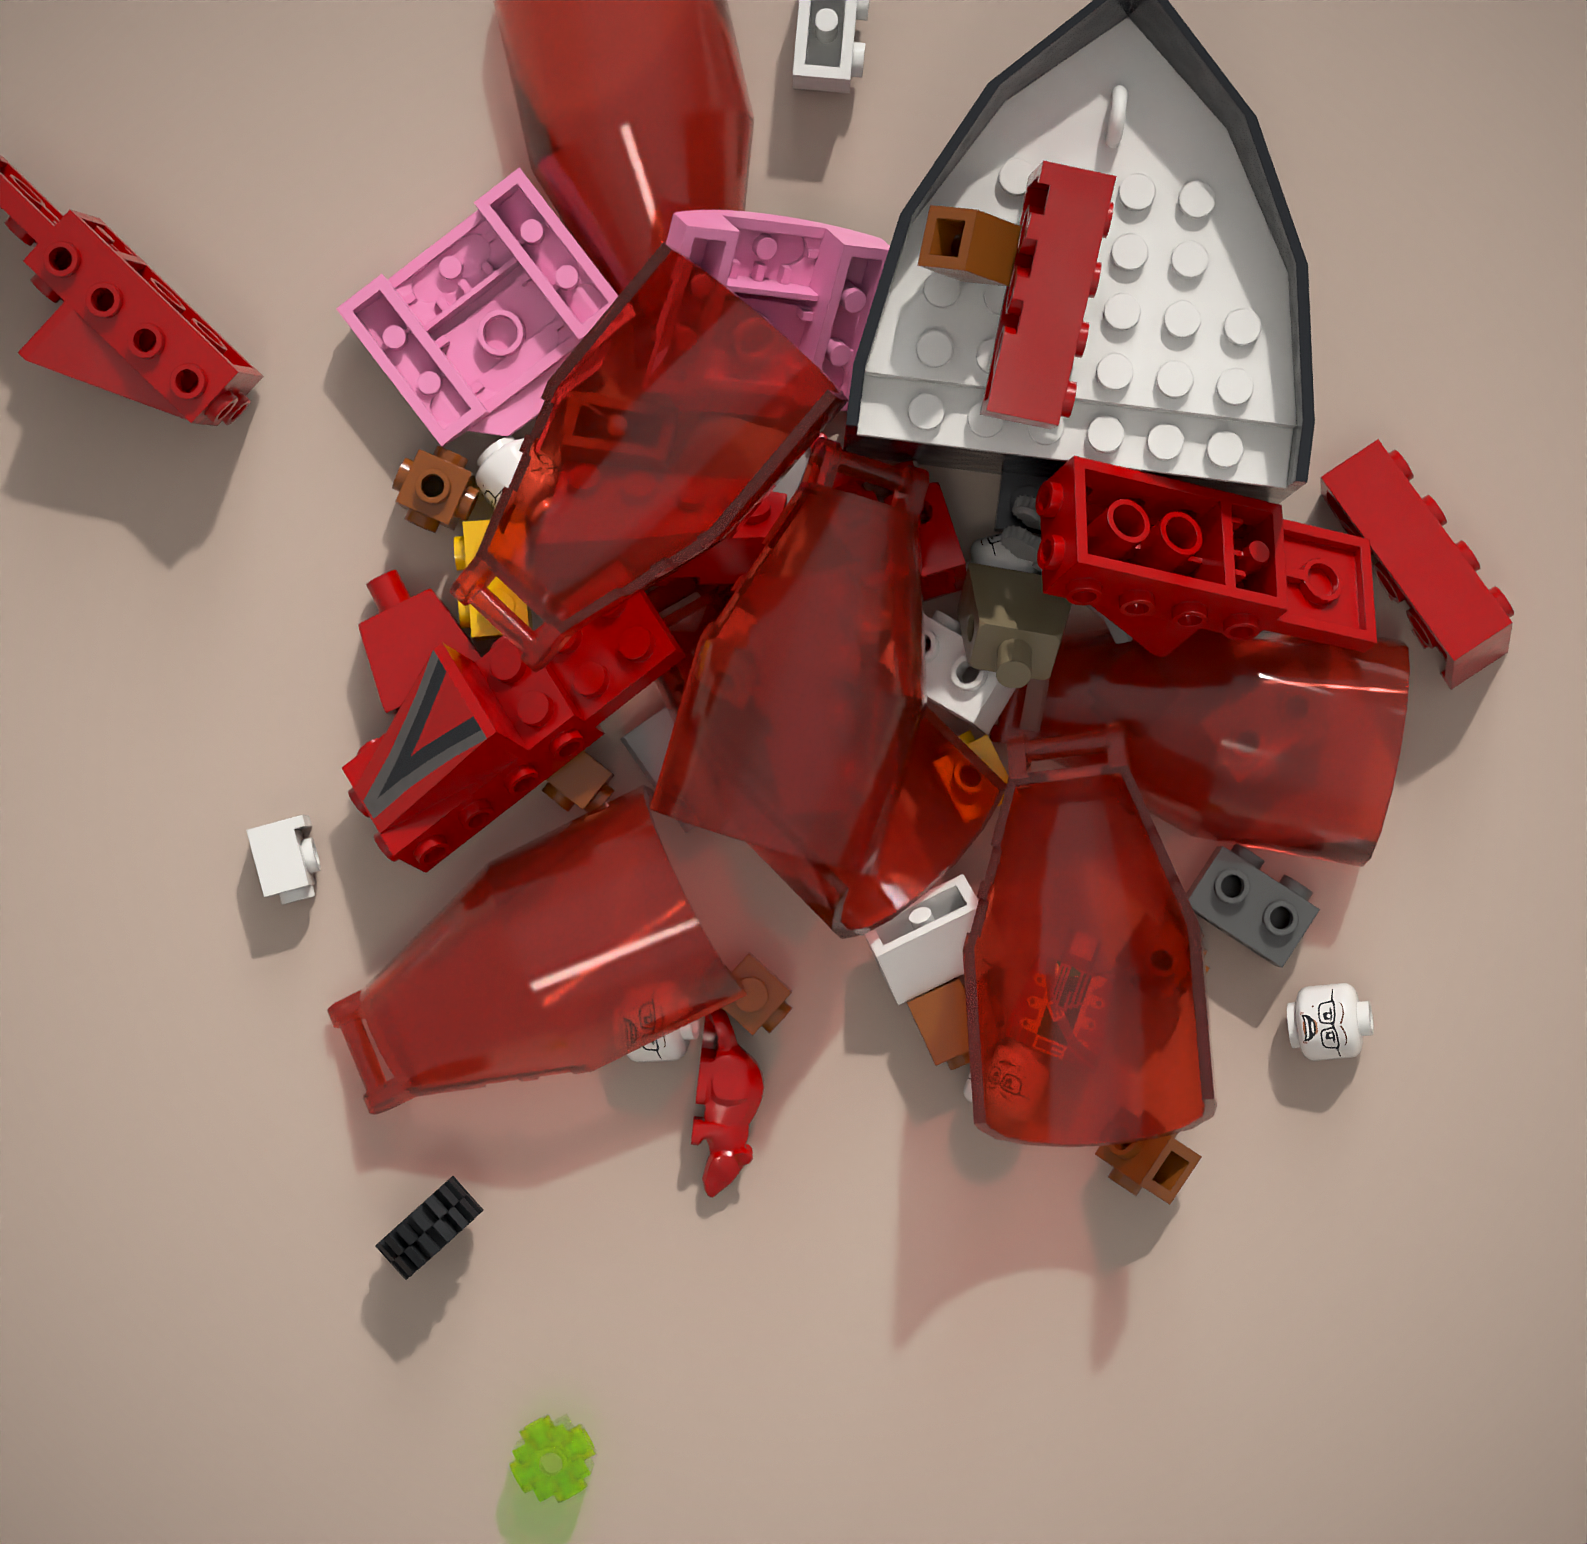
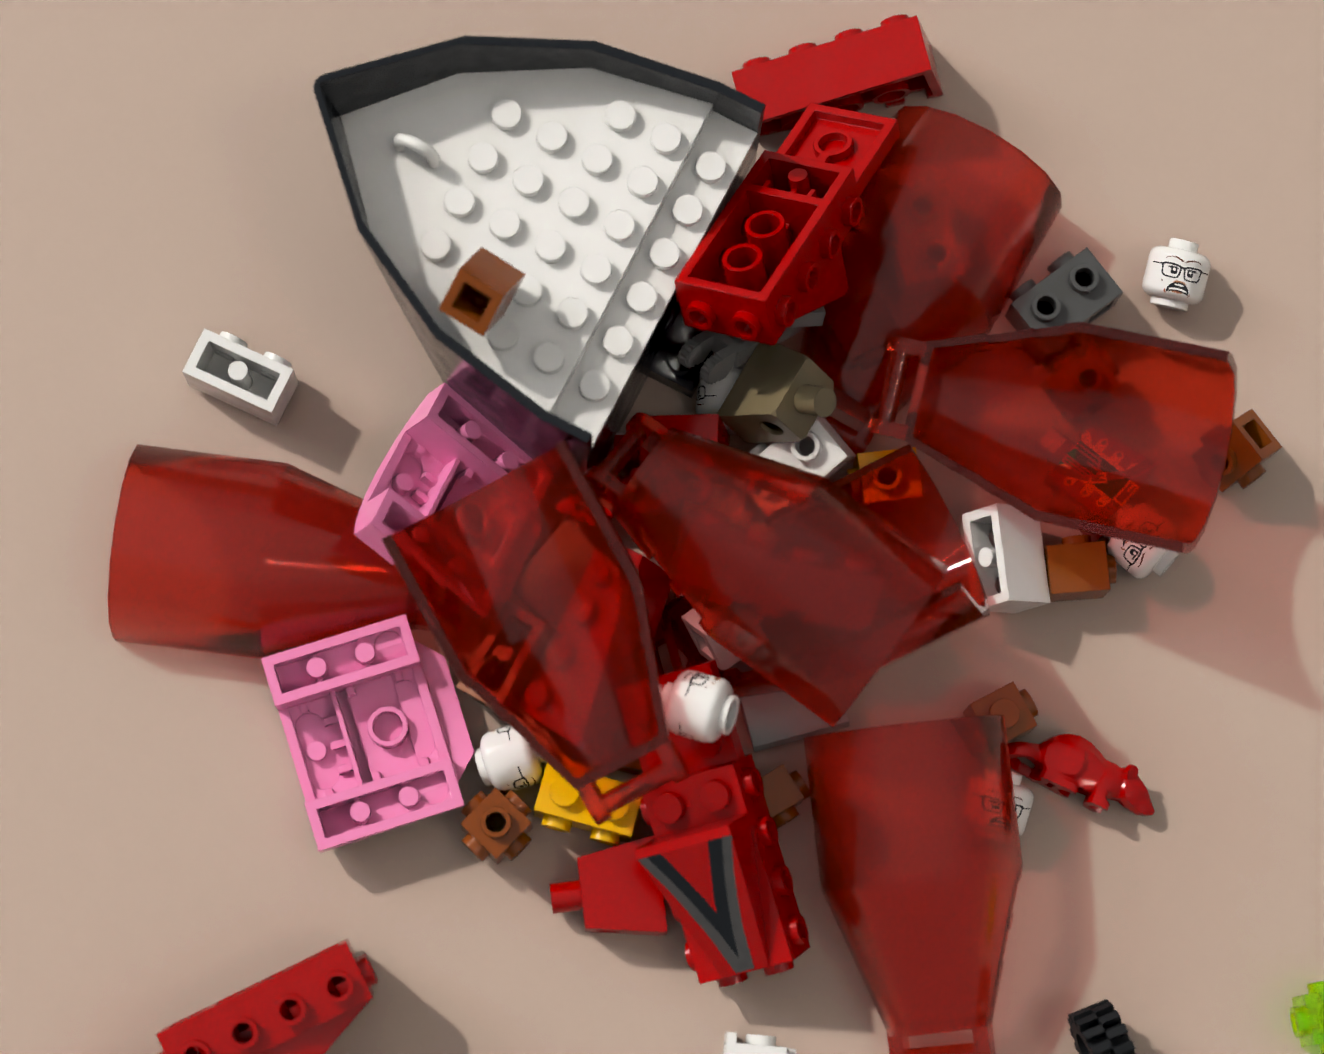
camera: 80 degrees left, 10 degrees down
(619, 656) = (700, 706): none -> white head
(1045, 305) = (553, 249): red wedge -> none

